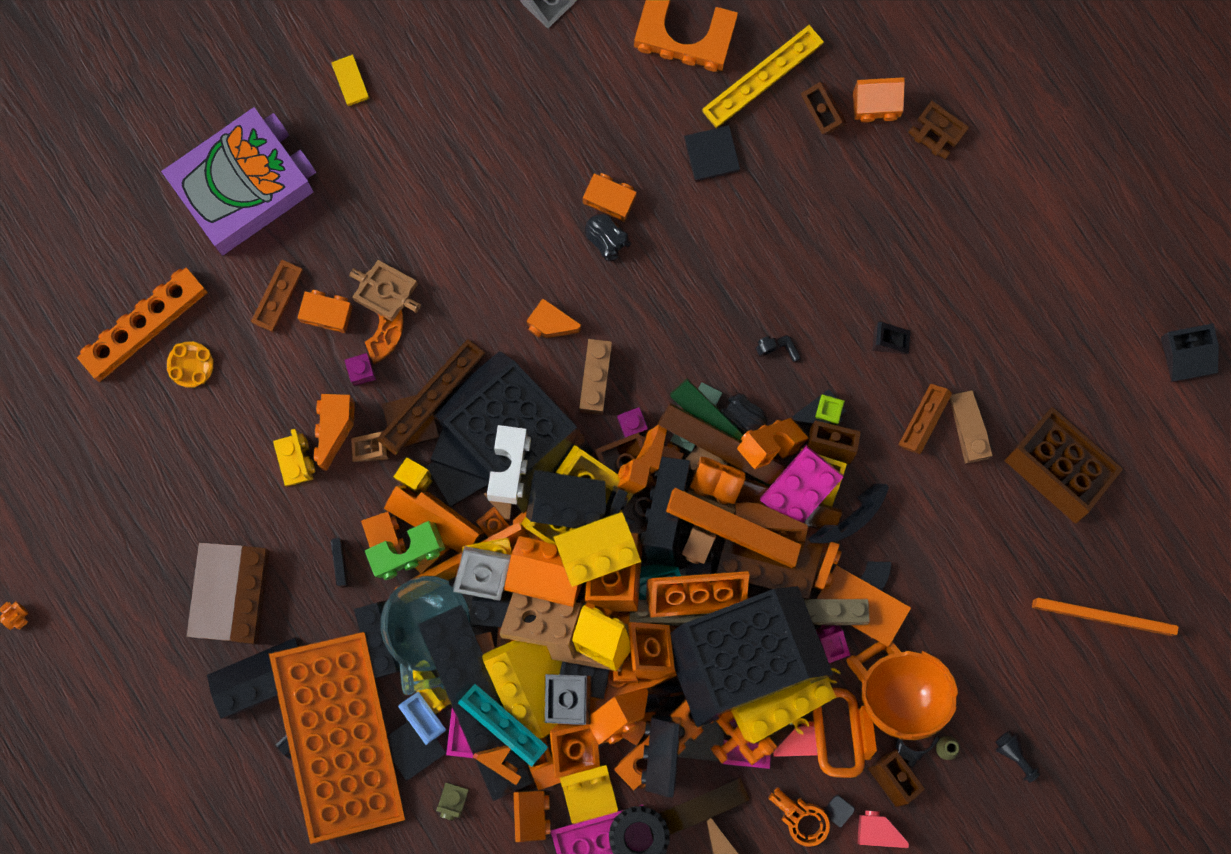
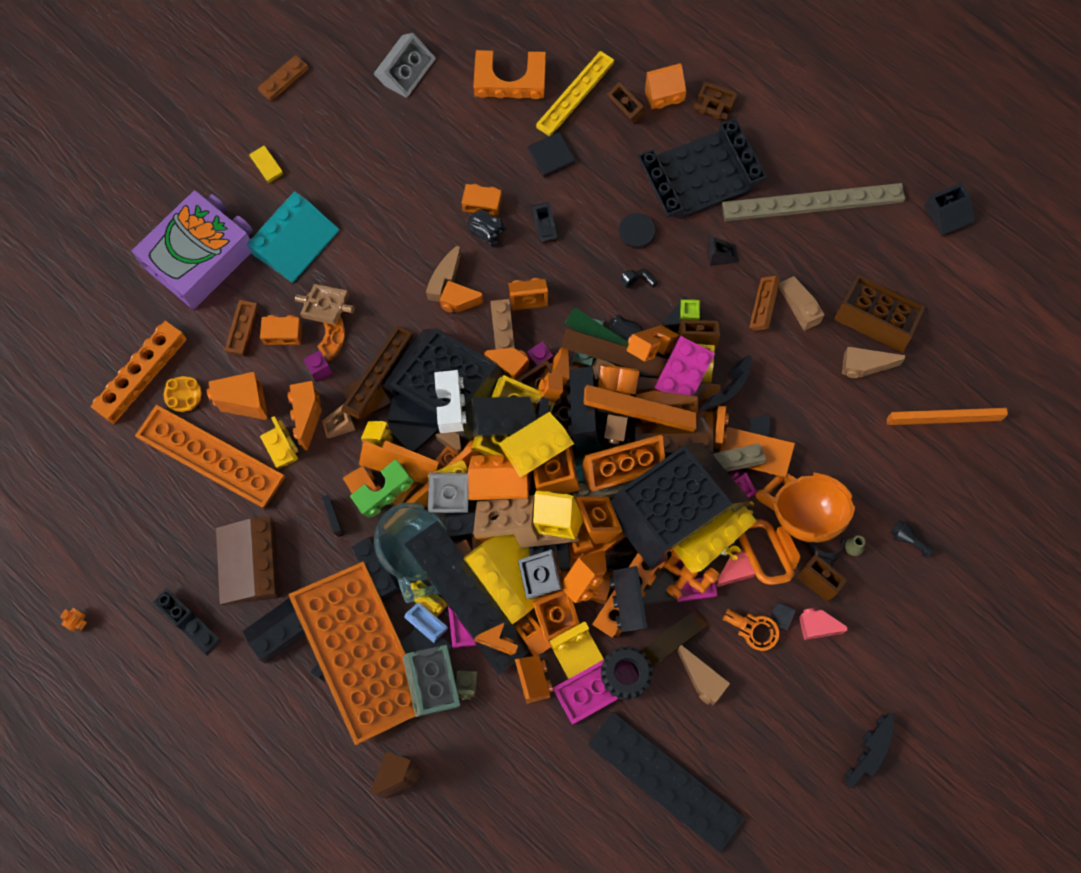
camera: 10 degrees left, 10 degrees down
(145, 650) = (187, 621): none -> black slope
(208, 452) = (210, 456): none -> orange plate
(259, 386) = (239, 395): none -> orange slope
(364, 191) = (292, 237): none -> teal slope
(412, 791) = (431, 680): none -> dark grey piece
(503, 725) = (493, 606): teal plate -> none
(540, 287) = (444, 272): none -> medium nougat slope
(593, 425) = (513, 362): none -> orange slope
(637, 336) = (528, 294): none -> orange slope
(680, 247) = (544, 221): none -> black slope
(793, 283) = (636, 231): none -> black tile
(895, 224) = (703, 171): none -> black slope
(1024, 297) = (813, 202): none -> dark tan plate
(1024, 524) = (864, 362): none -> medium nougat slope

